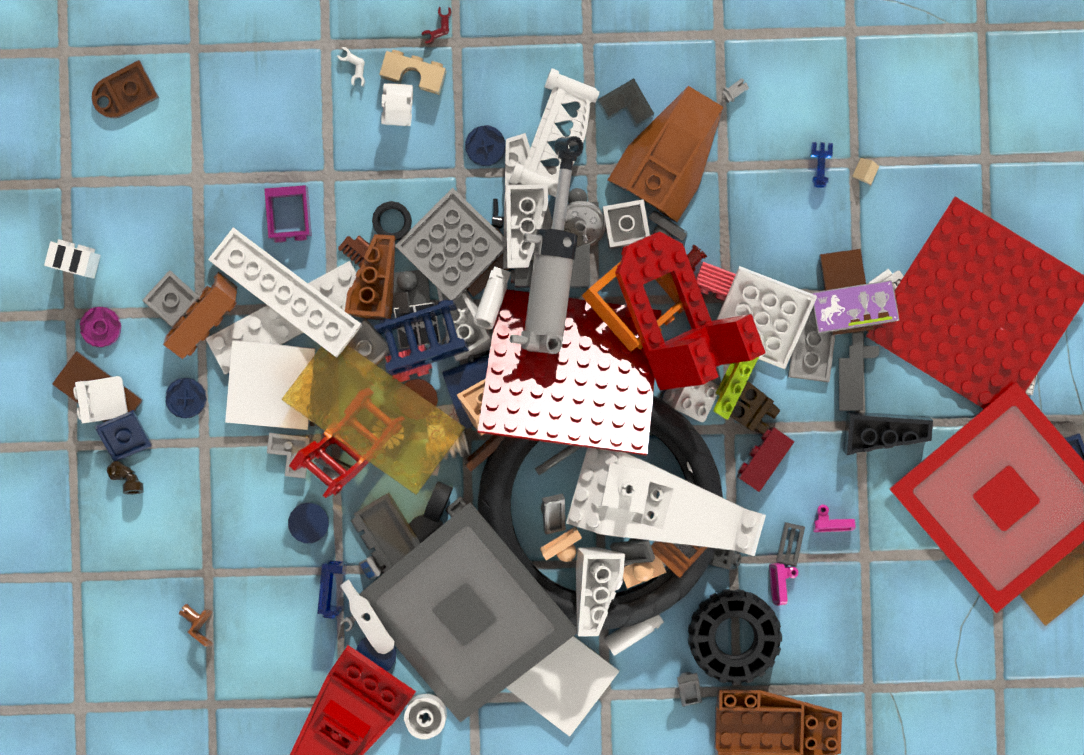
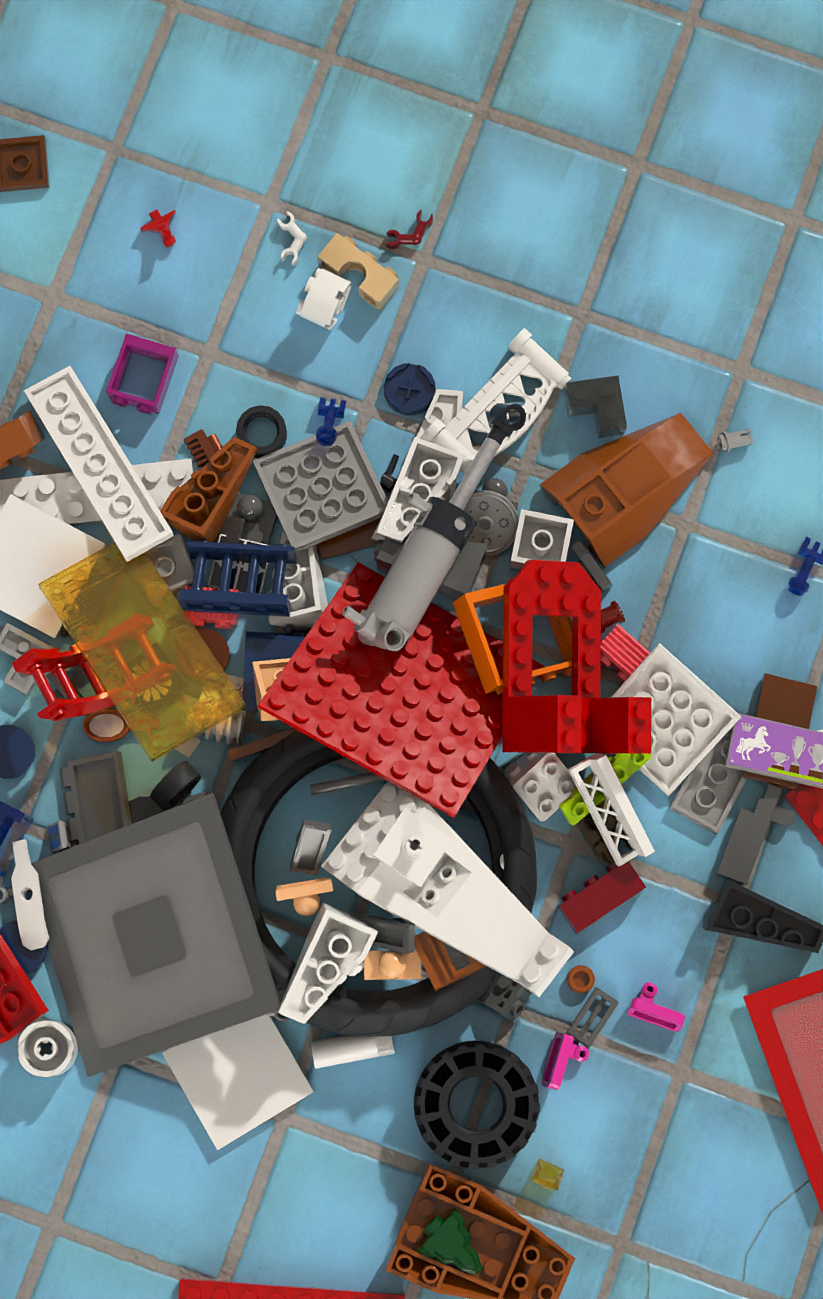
camera: 25 degrees right, 10 degrees down
(254, 94) = (160, 225): none -> red piece
(369, 478) = (105, 725): none -> piece
(440, 206) = (327, 434): none -> clear blue hinge
(492, 298) = (343, 565): white piece -> none
(689, 689) = (392, 1149): dark grey tile -> none
(753, 736) = (450, 1243): none -> dark green rock
(756, 394) = (620, 805): none -> white fence
(773, 521) = (580, 979): none -> dark orange tile
(801, 662) = (547, 1175): none -> clear yellow slope

